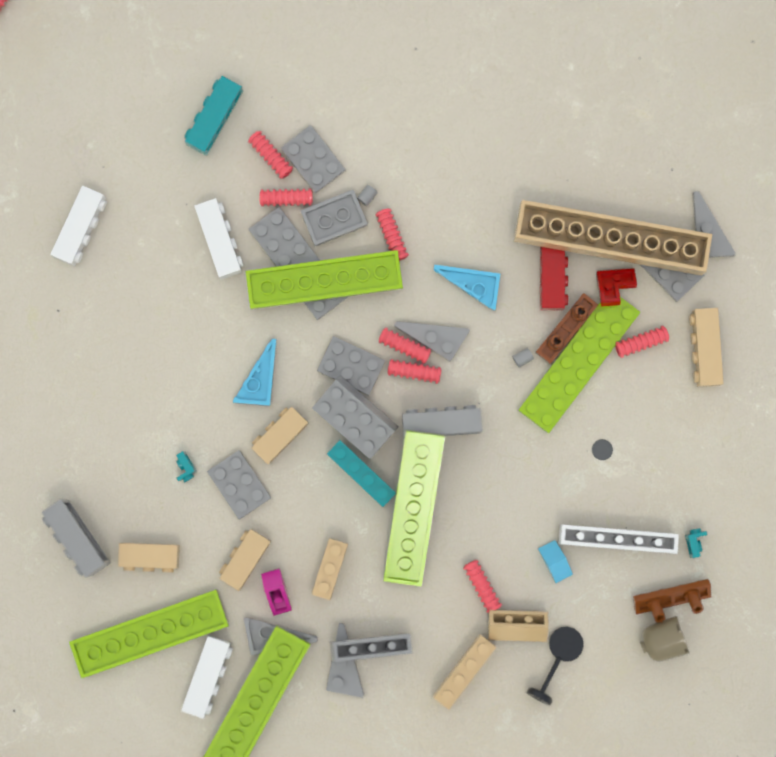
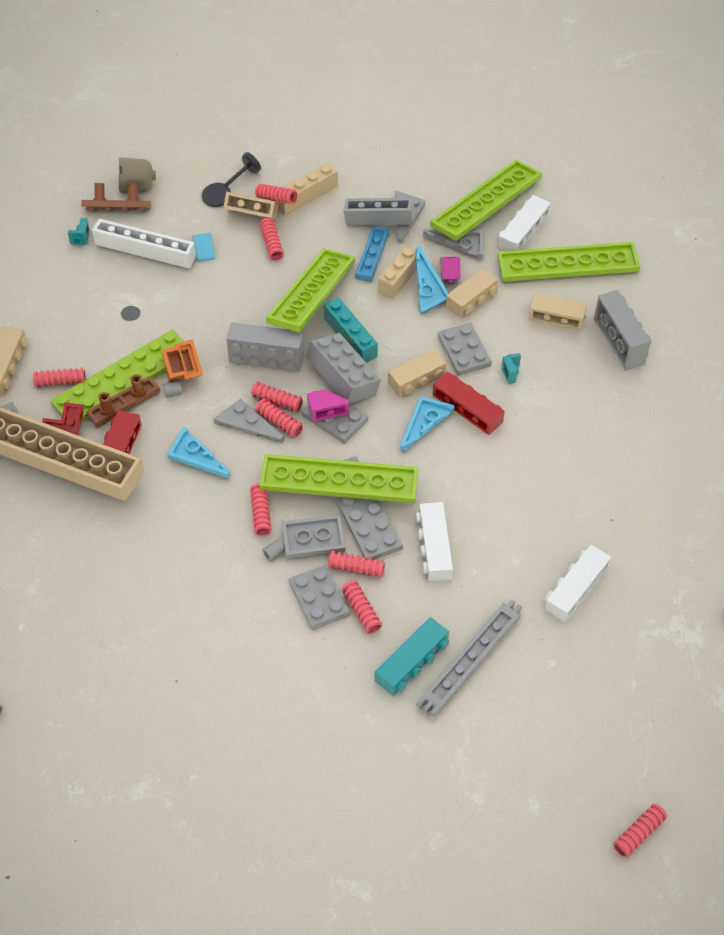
camera: 165 degrees left, 30 degrees down
(161, 129) = (470, 658): none -> light grey hinge
(220, 410) = (468, 402): none -> red brick
(291, 554) = (430, 287): none -> medium azure wing
(360, 362) = (326, 405): none -> dark pink slope
(367, 596) = (372, 254): none -> dark azure tile
(491, 637) = (276, 193): none -> coral piece
(522, 380) = (181, 361): none -> orange plate

